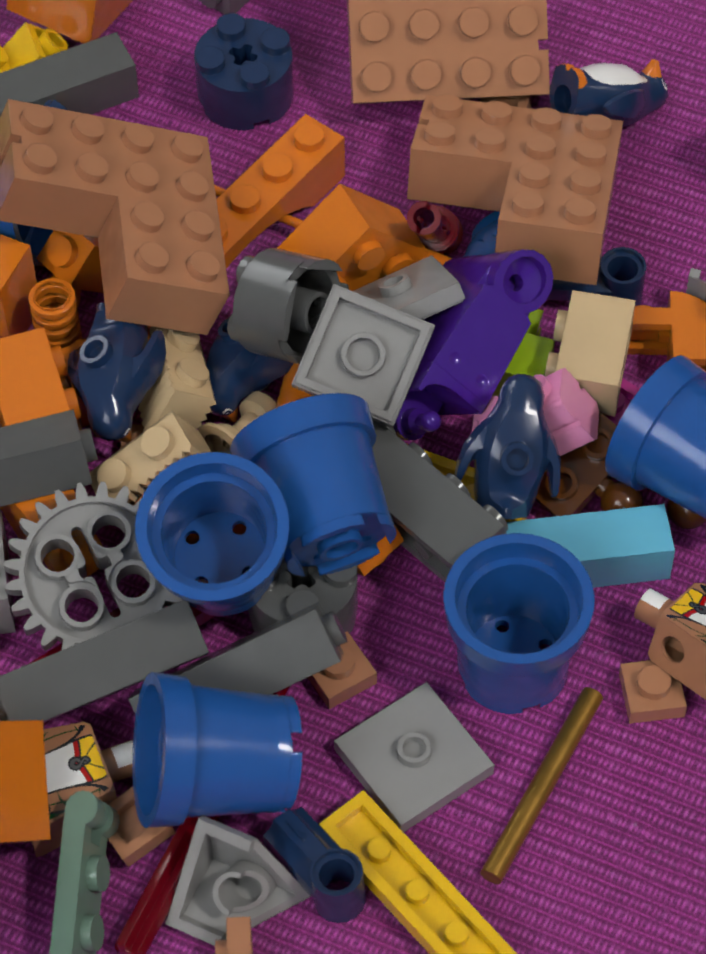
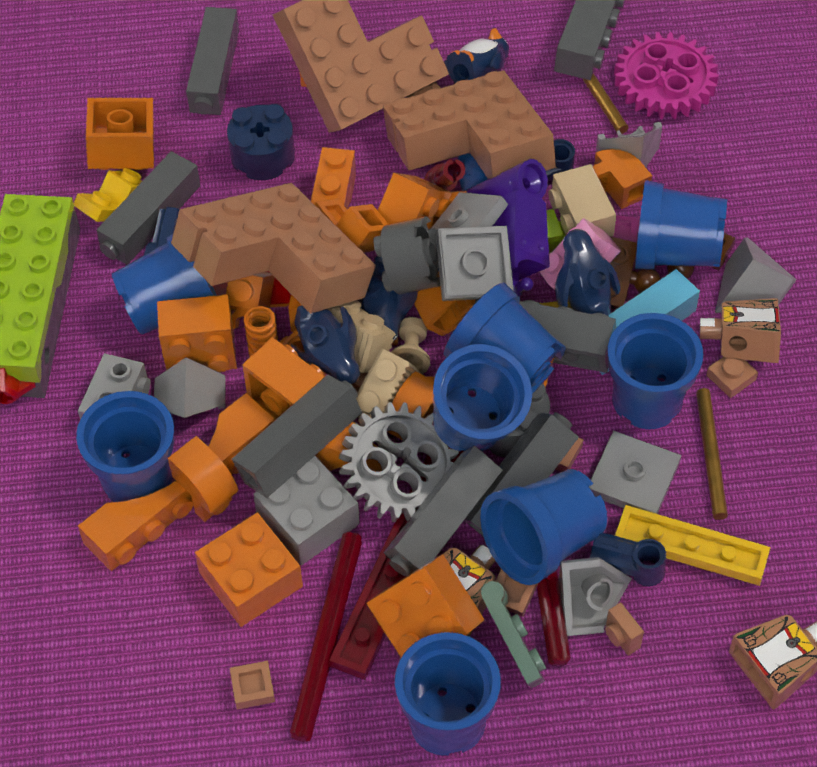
camera: 30 degrees left, 0 degrees up
(248, 223) = (357, 222): none -> orange brick

